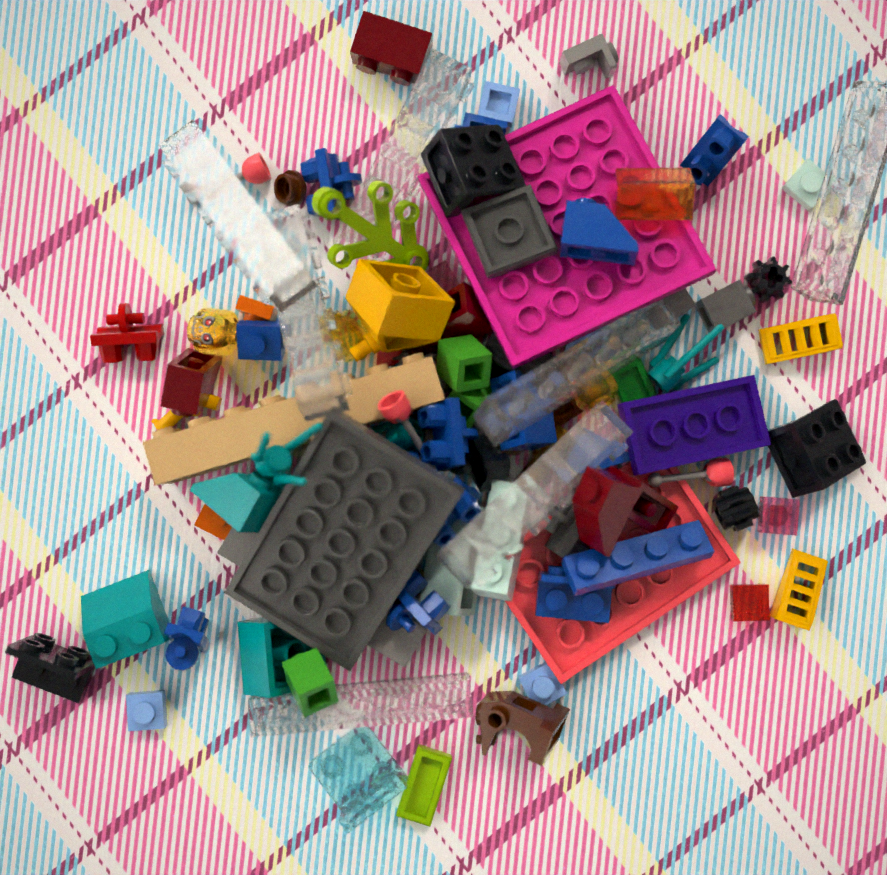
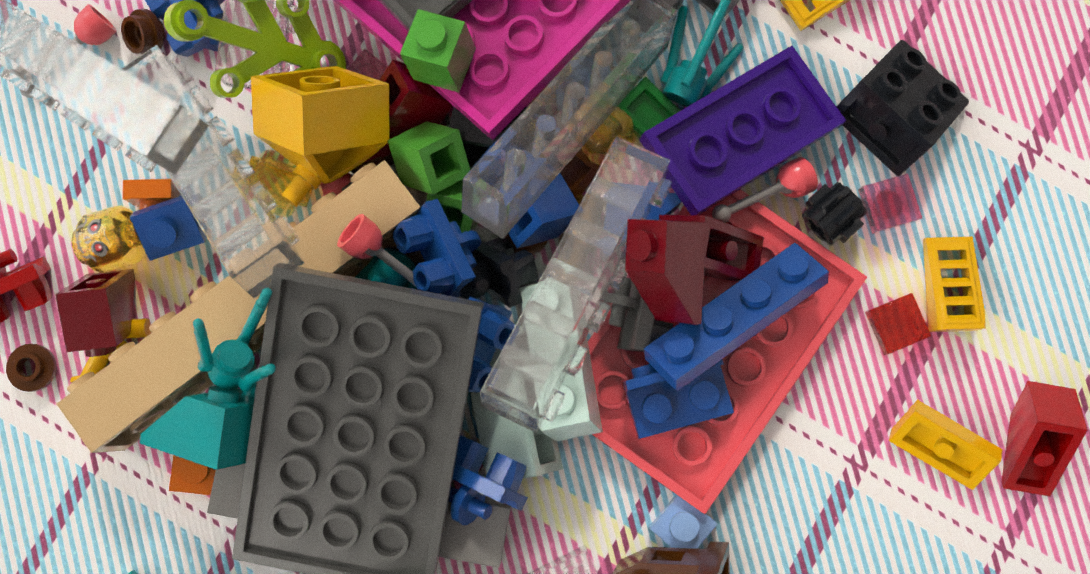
camera: 15 degrees left, 5 degrees down
(138, 401) = (43, 373): none -> reddish brown plate
(499, 294) = (438, 50): none -> bright green brick
(748, 700) = (945, 445): none -> yellow plate
(818, 721) = (1042, 438): none -> red slope

